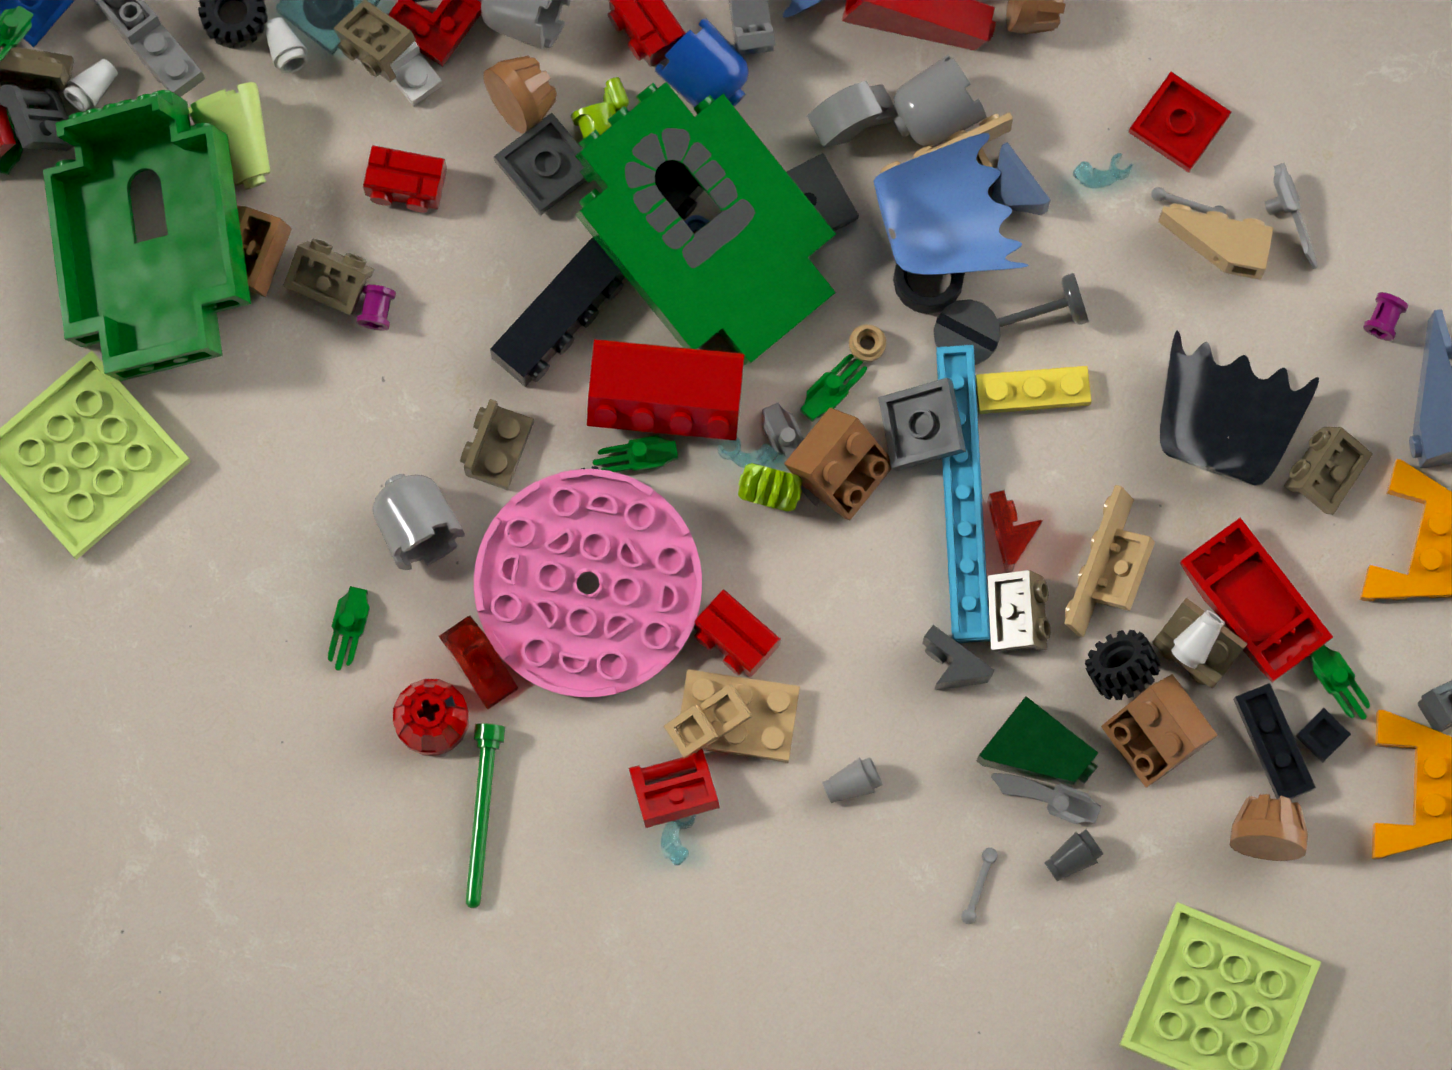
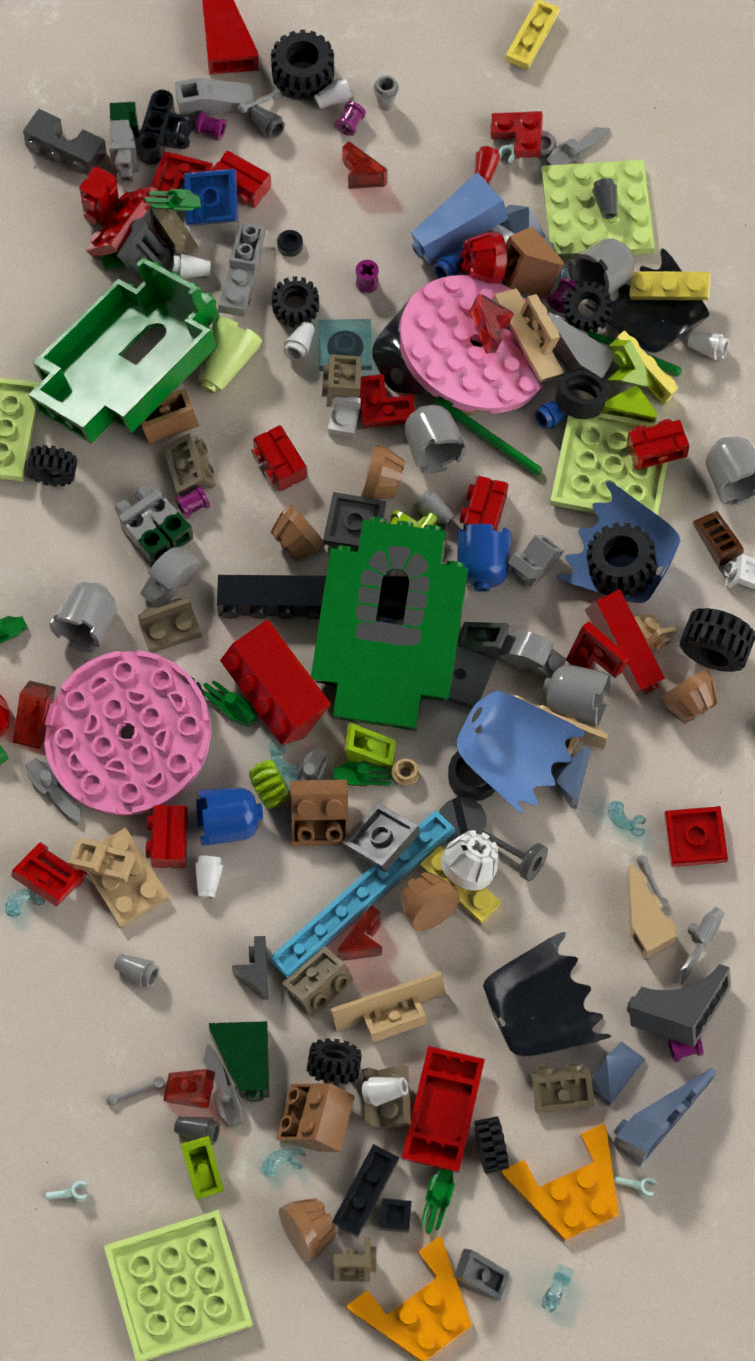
camera: 50 degrees right, 10 degrees down
(207, 416) = (51, 465): none -> black tyre
(366, 368) = (153, 524): none -> hips
(444, 399) = (168, 573): none -> light grey brick
(513, 232) = (296, 534): none -> medium nougat piece
(562, 710) = (46, 782): none -> light grey piece
(594, 71) = (432, 503): none -> light grey cone
(767, 558) = (227, 815): none -> blue cylinder
(797, 140) = (483, 637): none -> dark grey slope
(812, 629) = (208, 875): none -> white cone
(814, 355) = (369, 746): none -> lime slope
(905, 43) = (595, 648): none -> red plate
(1024, 358) = (470, 861): none -> white piece
(1026, 828) = (190, 1088): none -> clear red slope
(1029, 434) = (428, 901): none -> medium nougat piece
(1031, 1037) = (68, 1193): none -> light aqua hand
(1122, 883) = (202, 1167): none -> lime slope
(1166, 804) = (274, 1159): none -> clear light blue arm
(1334, 583) = (491, 1144): none -> black tyre
(1352, 293) = (680, 1012): none -> dark grey arch
(1353, 403) = (616, 1072): none -> sand blue slope
(1353, 805) = (354, 1266): none -> dark tan bracket

